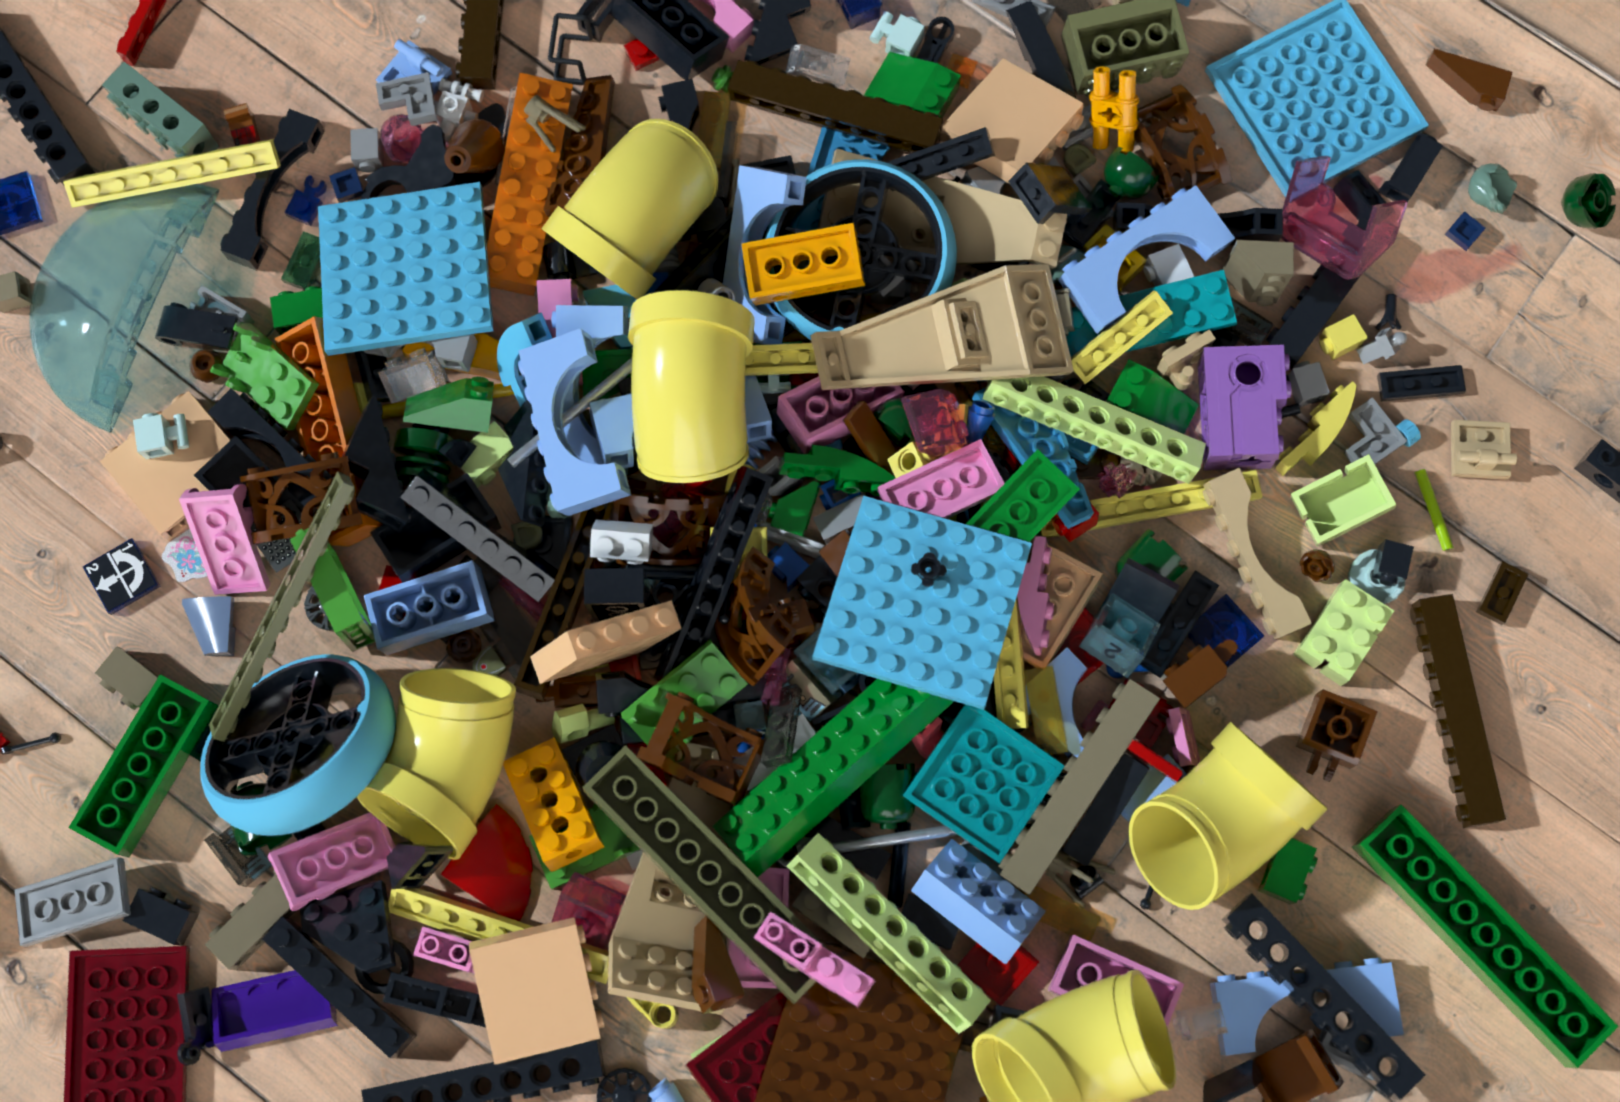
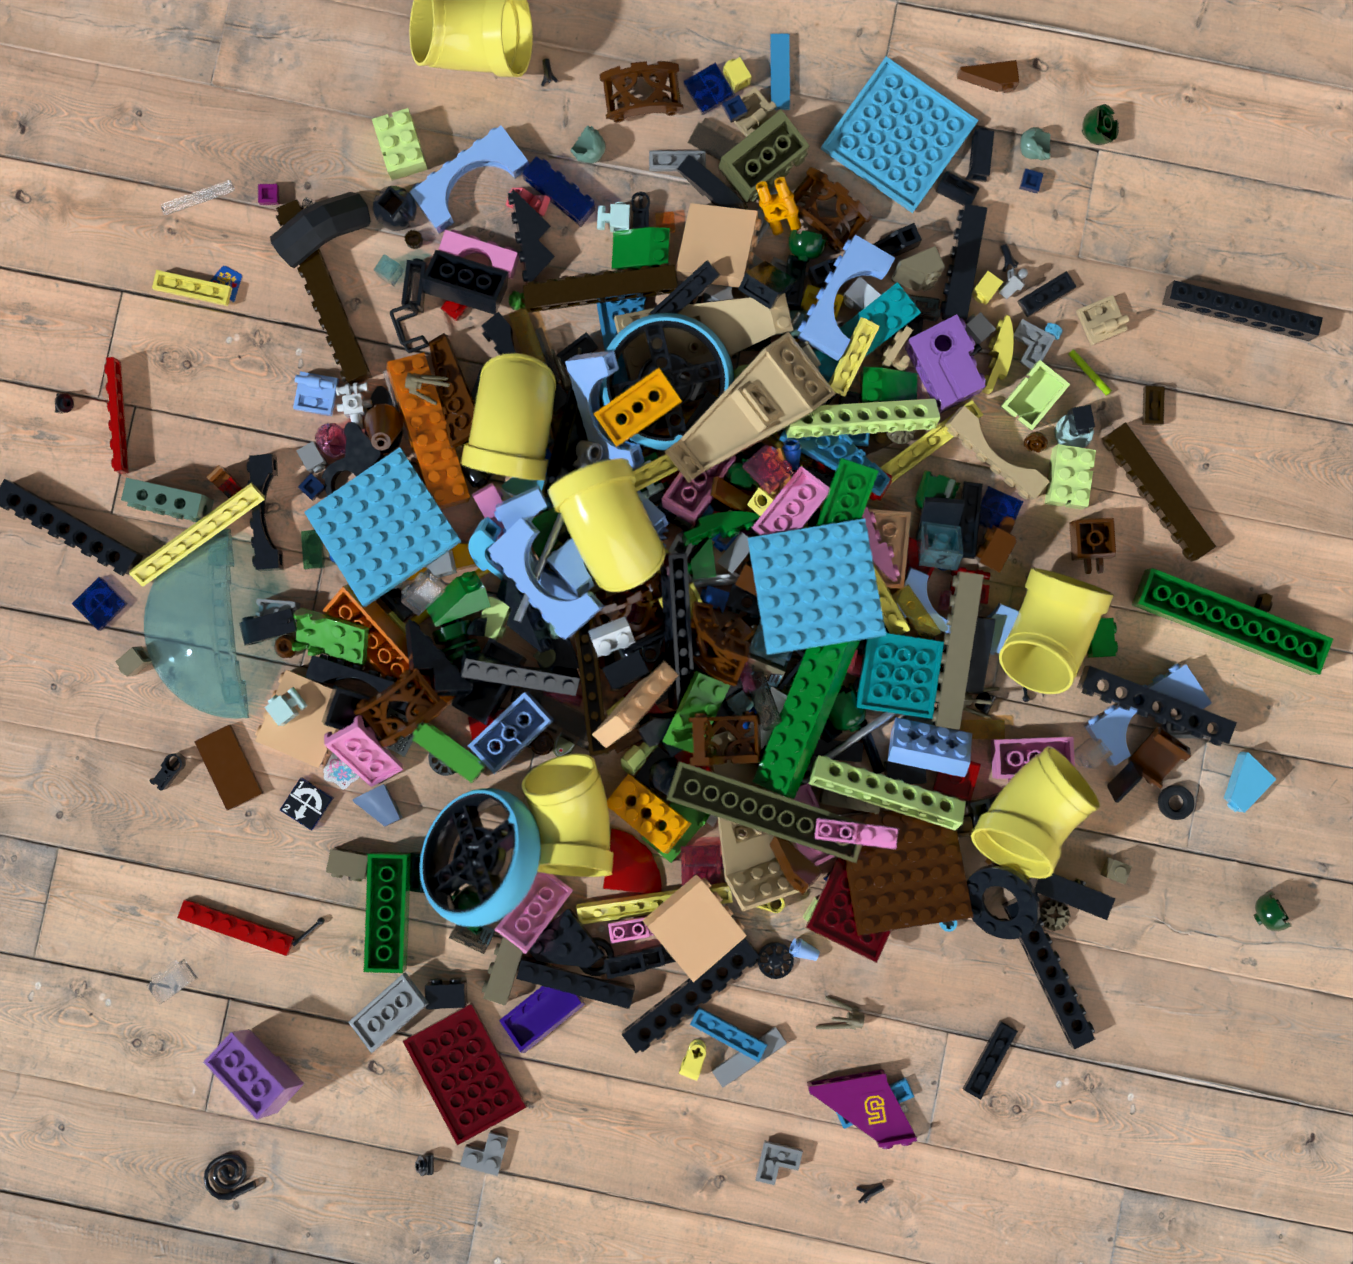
camera: 30 degrees left, 10 degrees up
(50, 482) = (228, 767): none -> reddish brown tile
(197, 1024) = (503, 1045): black hinge -> none
(277, 616) = (429, 781): olive plate -> none
(293, 308) = (326, 584): green brick -> none
(305, 204) = (291, 513): clear blue plate -> none
(409, 91) = (323, 406): light grey plate -> none
(414, 863) = (584, 889): black slope -> none
(818, 65) = (574, 264): clear brick -> none
(937, 569) = (811, 561): black plate -> none
(1078, 159) = (767, 247): olive tile -> none
(1115, 480) = (890, 448): clear pink gear -> none
(1155, 760) = (997, 613): red tile -> none
(1186, 749) = (1000, 583): bright pink plate -> none
(1327, 236) = (951, 226): clear pink windscreen -> none
(1542, 931) = (1264, 602): none -> dark brown plate

